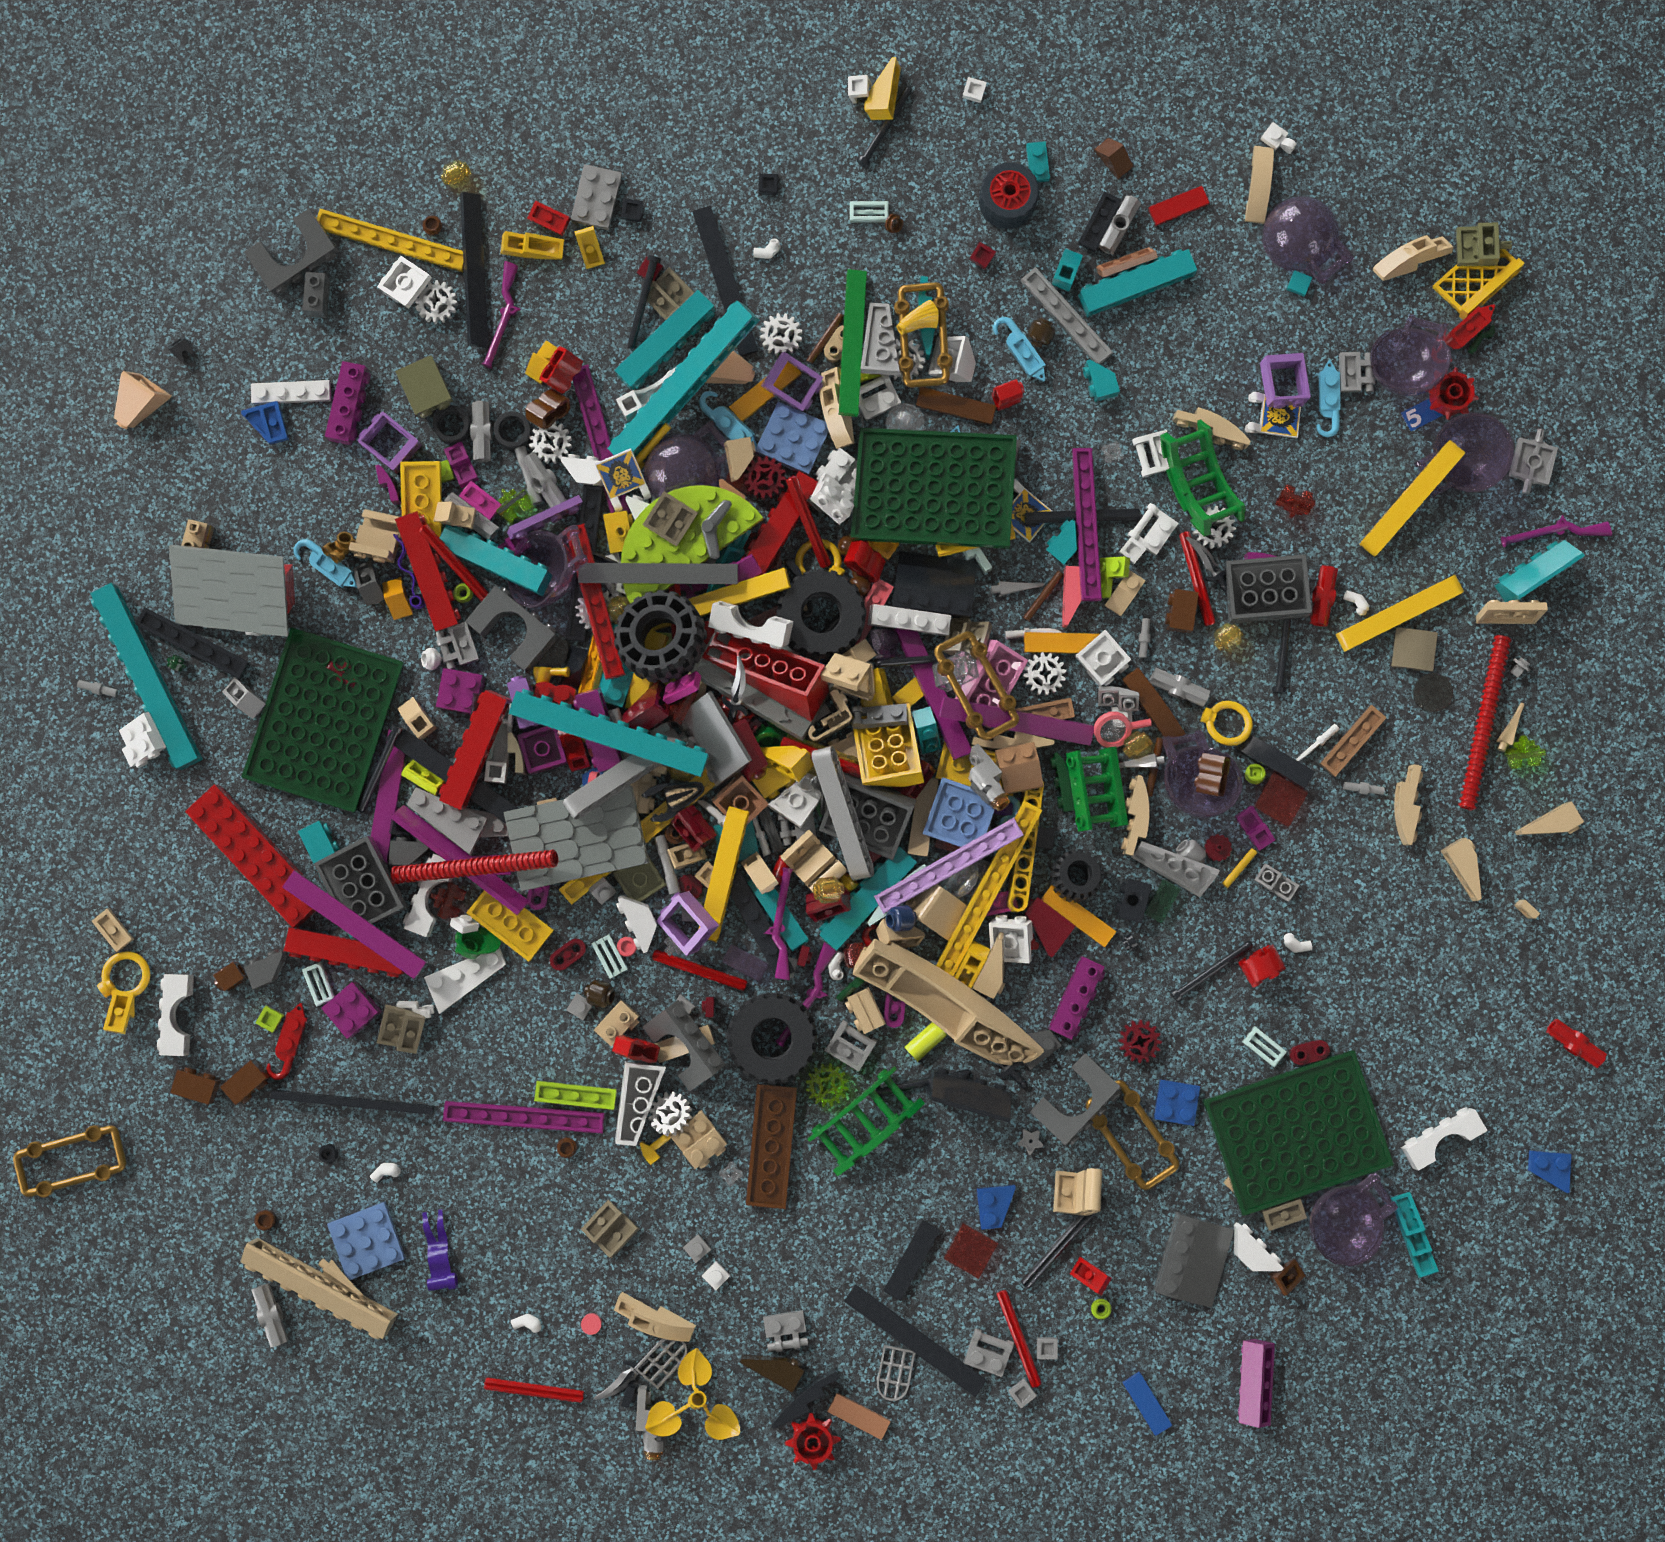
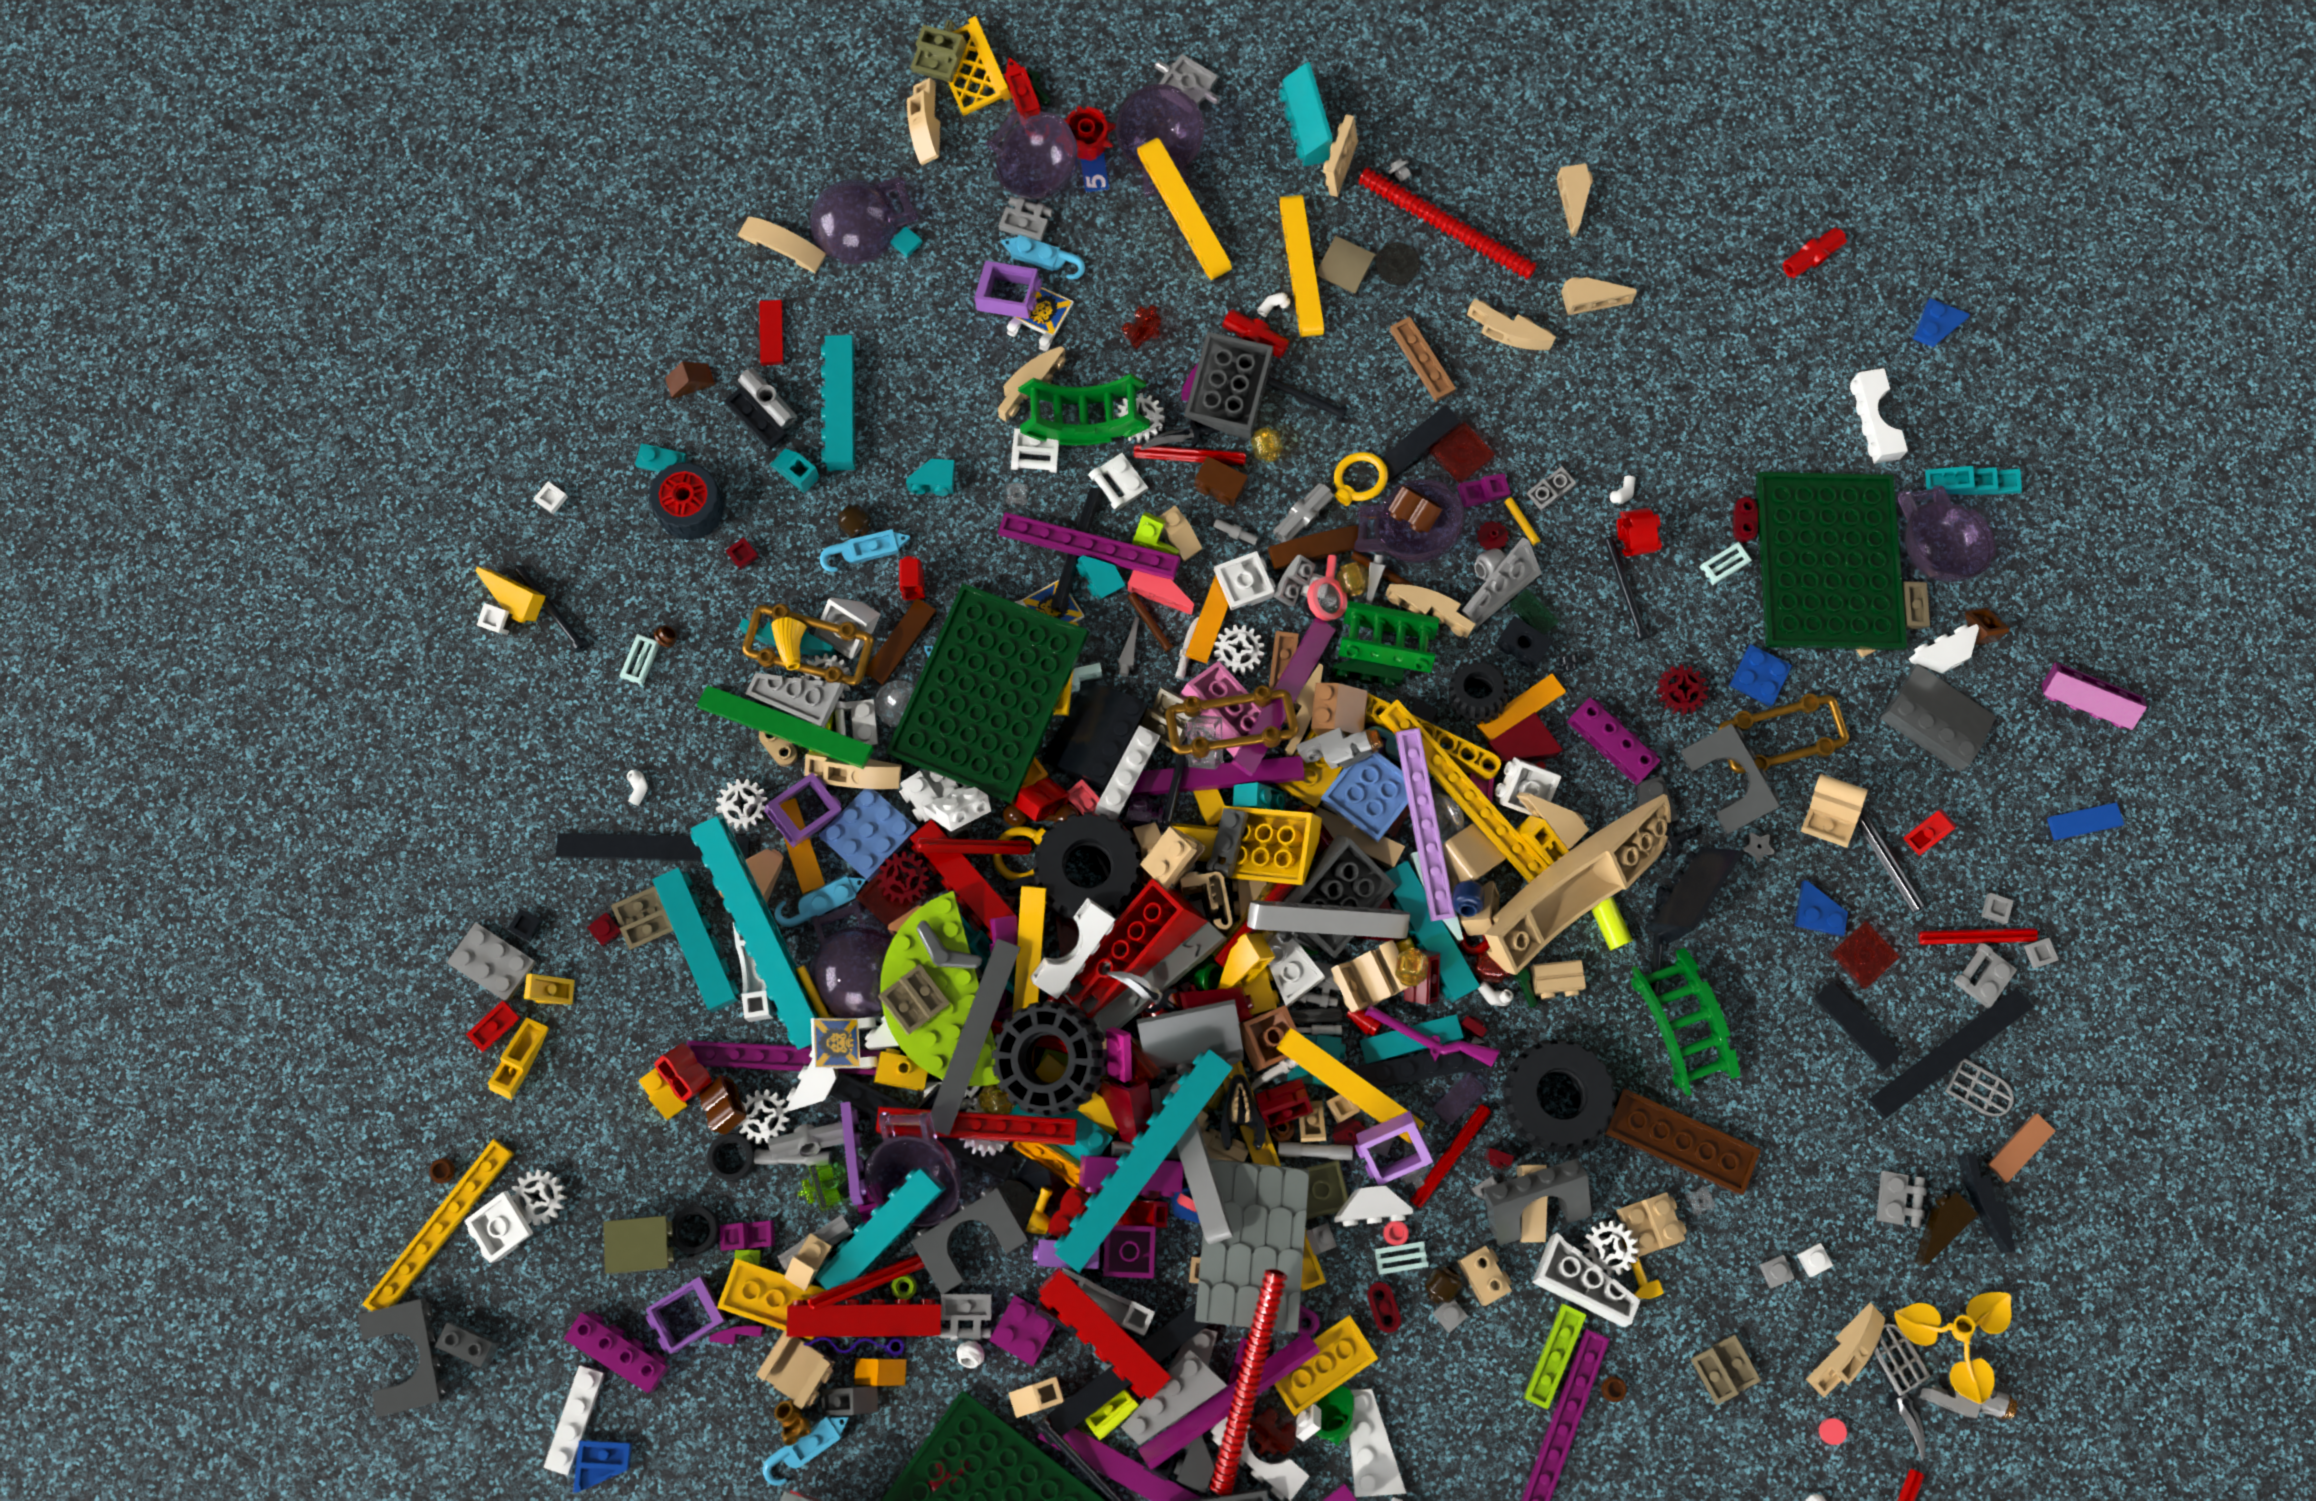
camera: 70 degrees left, 10 degrees down
(456, 174) = (392, 1119): clear yellow head -> none
(474, 270) = (518, 1138): black tile -> none
(480, 500) = (800, 1225): dark pink plate -> none
(481, 431) = (717, 1196): light grey piece -> none
(508, 276) = (541, 1098): magenta piece -> none
(515, 750) = (1118, 1283): dark tan slope -> none
(630, 1395) = (1931, 1412): black plate -> none
(636, 1049) = (1524, 1261): red brick -> none
(643, 300) = (597, 919): black bar -> none
(738, 454) = (867, 899): tan slope -> none
(760, 873) = (1364, 1042): tan slope -> none
(768, 184) = (560, 760): black tile -> none
(814, 1452) = (2052, 1213): red brick -> none
(825, 338) = (766, 758): reddish brown bar -> none
(825, 956) = (1481, 1003): magenta piece -> none
(835, 1090) = (1637, 1059): clear neon green gear -> none
(847, 1051) = (1596, 1017): light grey plate -> none
(893, 1007) = (1562, 946): magenta plate -> none
(1066, 316) = (845, 490): light grey tile -> none
(1107, 1308) = (1973, 832): lime plate -> none
(1126, 262) = (812, 405): nougat tile -> none
(1133, 550) = (1133, 509): white plate -> none
(1255, 774) = (1425, 469): lime tile -> none
(1276, 137) = (738, 209): white plate -> none
(1320, 741) = (1407, 383): white piece -> none
(1363, 788) = (1476, 366): light grey bar -> none
(1508, 735) = (1468, 206): tan piece -> none
(1524, 749) = (1489, 196): clear neon green hips -> none
(1527, 909) = (1659, 251): tan tile -> none
(1600, 529) = (1263, 79): magenta piece -> none

